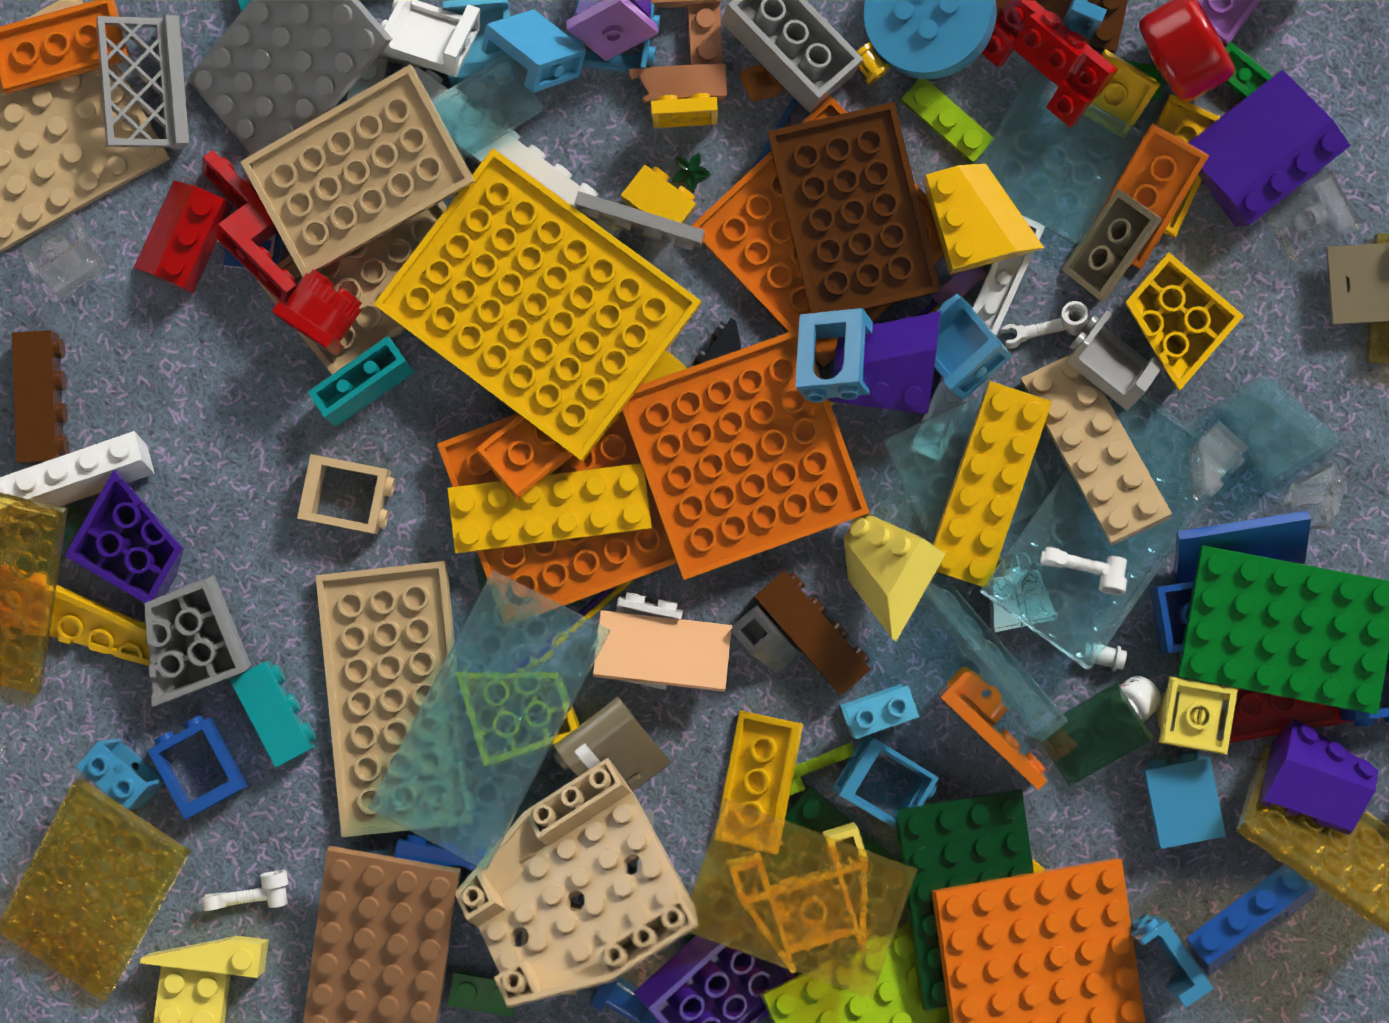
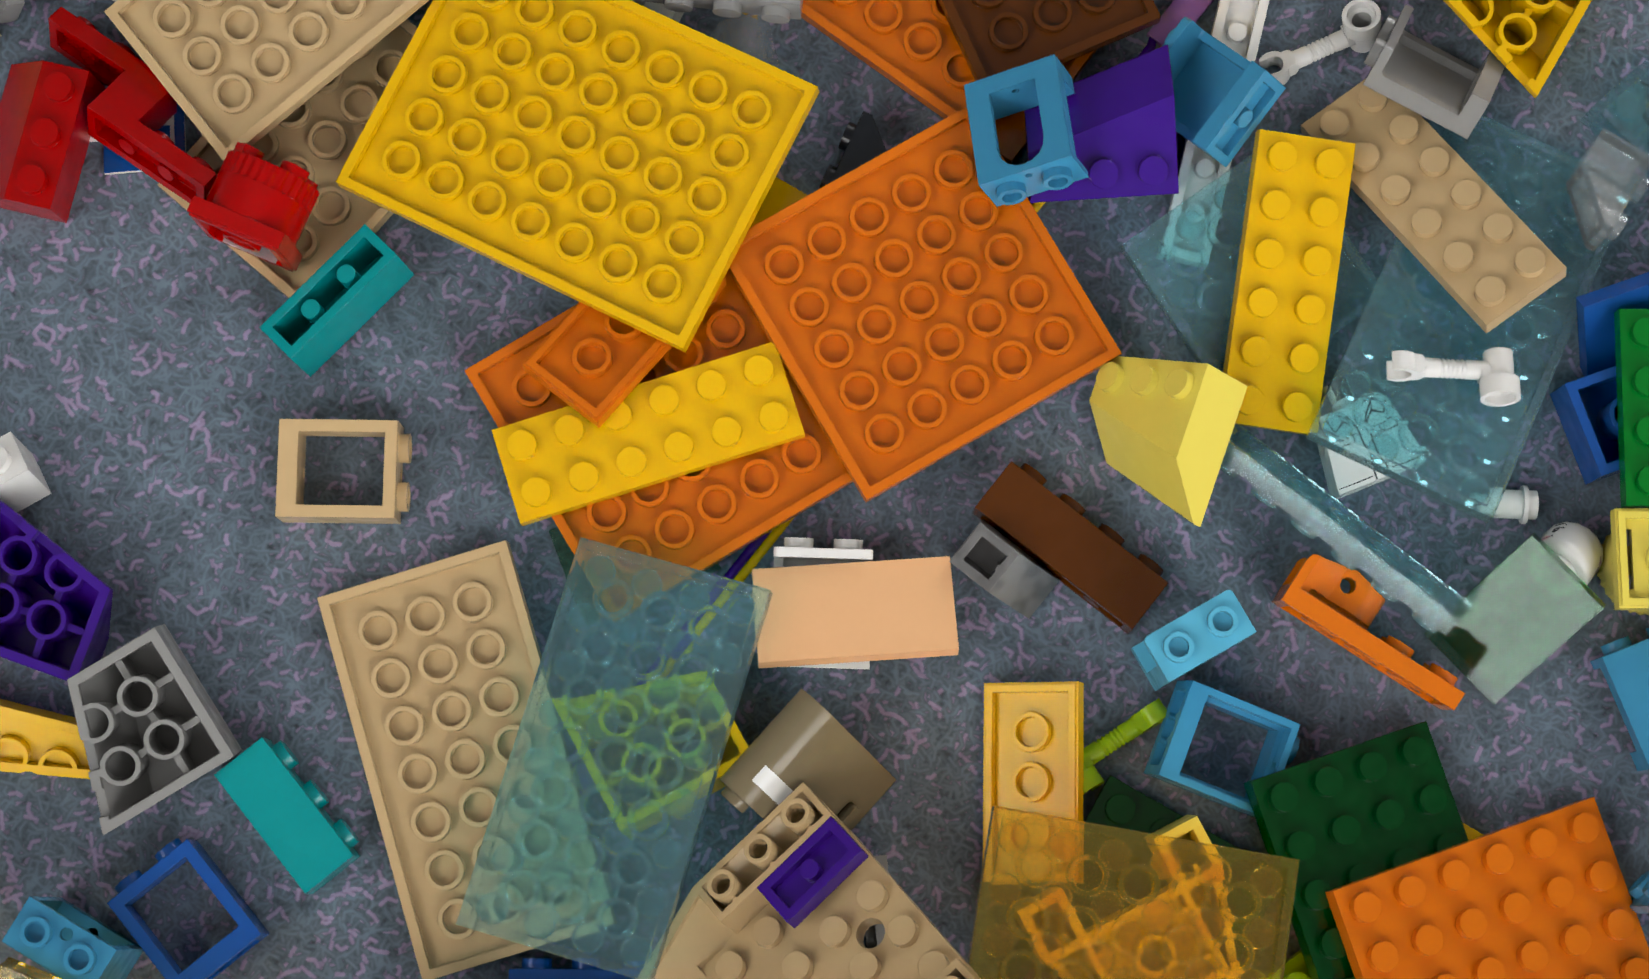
camera: 15 degrees left, 5 degrees down
(602, 818) = (812, 872): none -> dark purple plate

